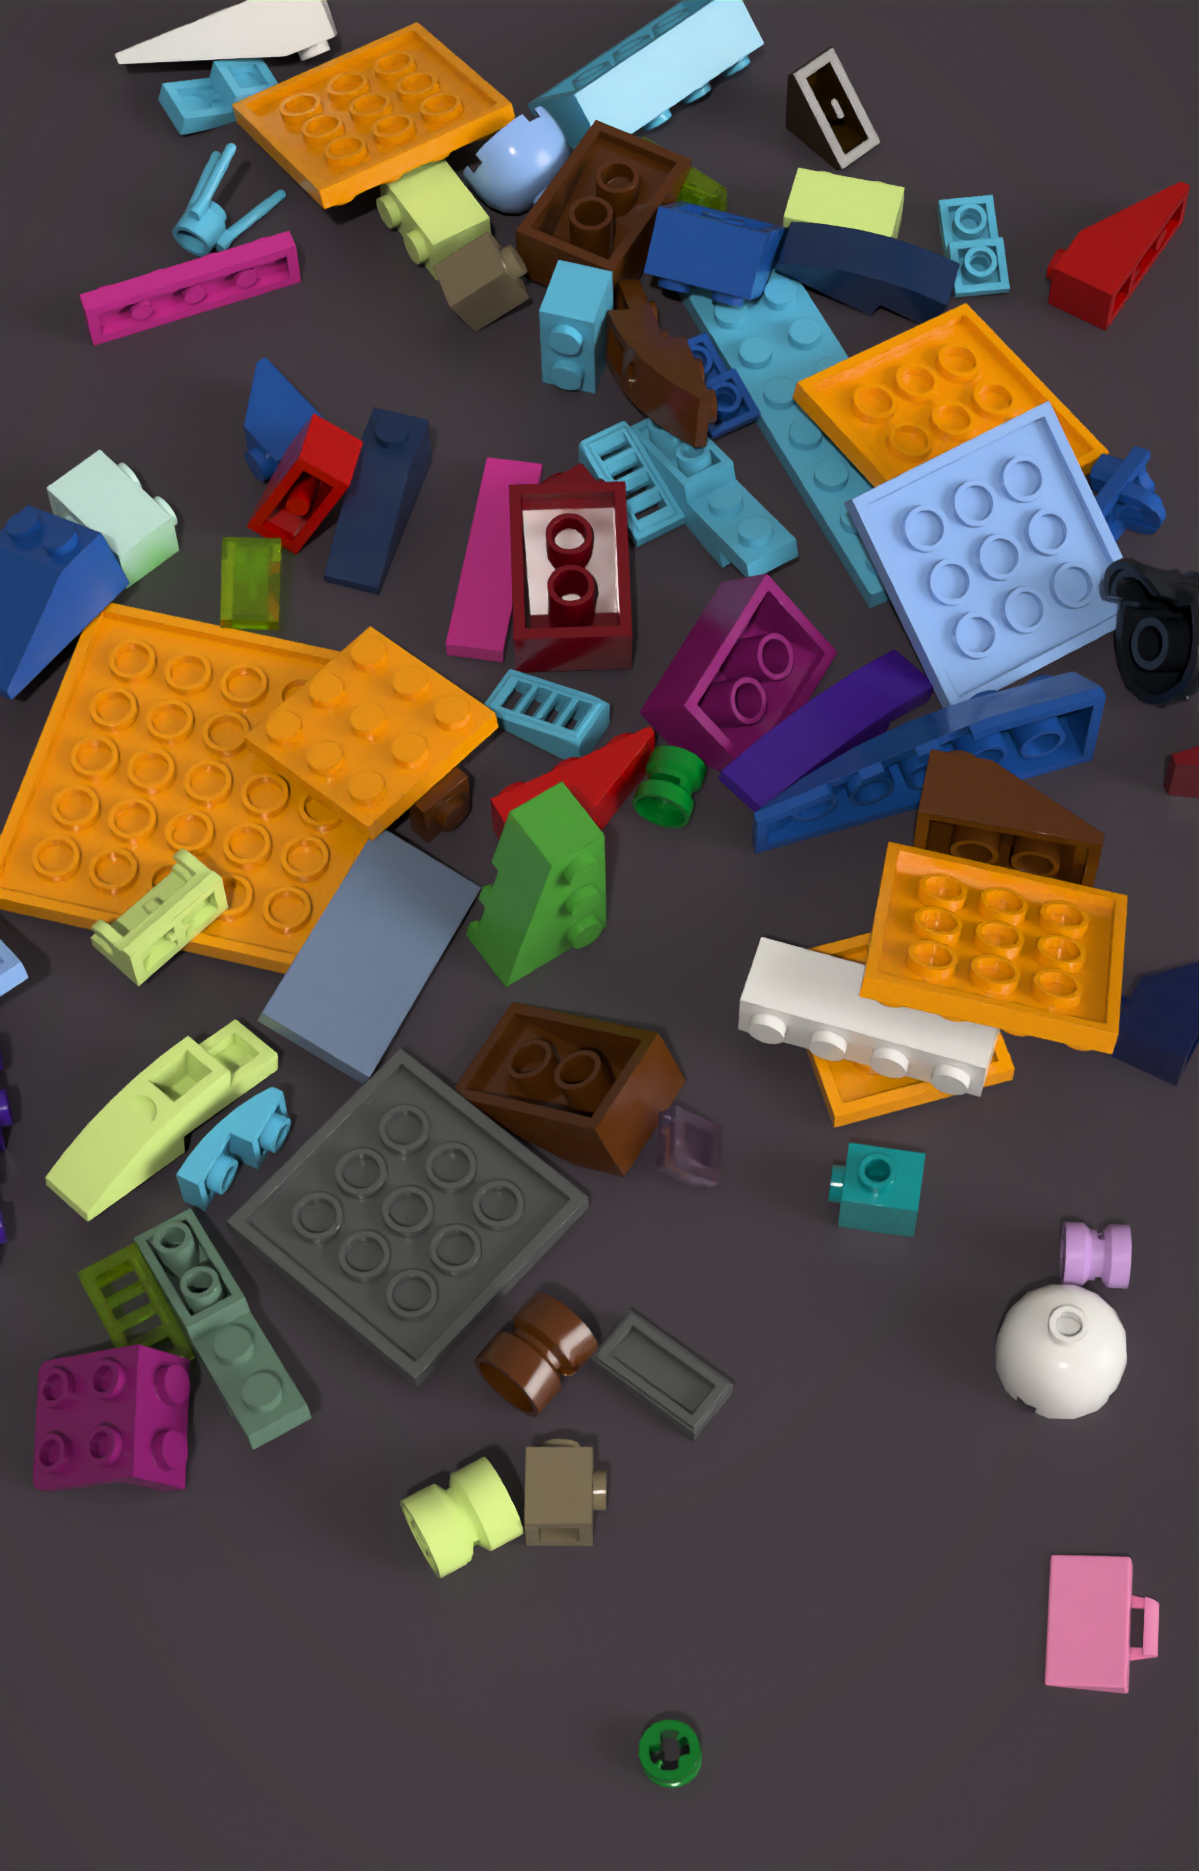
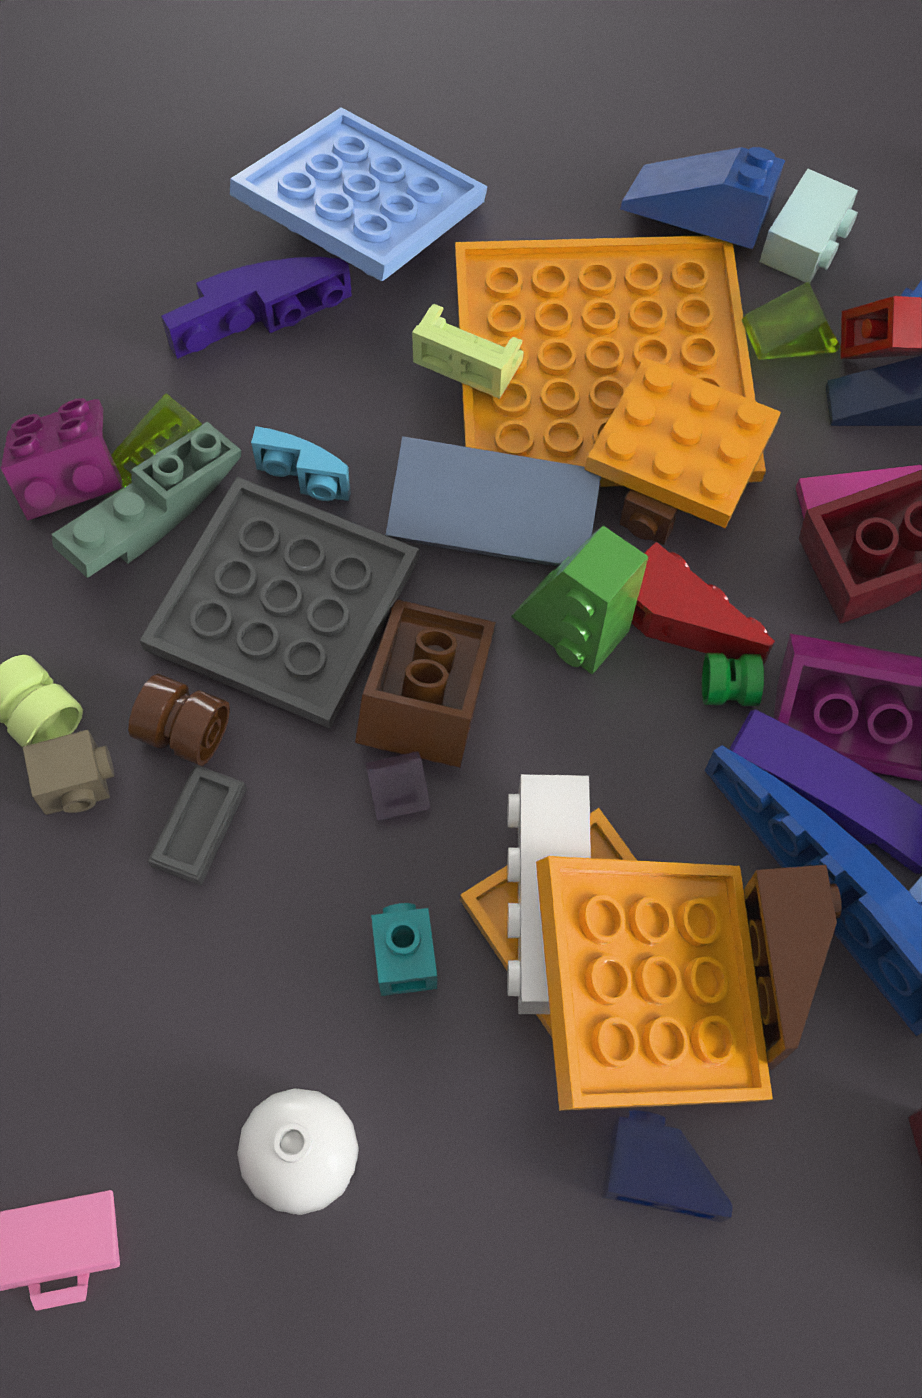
camera: 70 degrees right, 5 degrees up
(152, 1114) = (314, 402): yellowish green slope -> none
(589, 712) = (760, 603): medium azure slope -> none
(1095, 1255) = (394, 1157): lavender wheel -> none

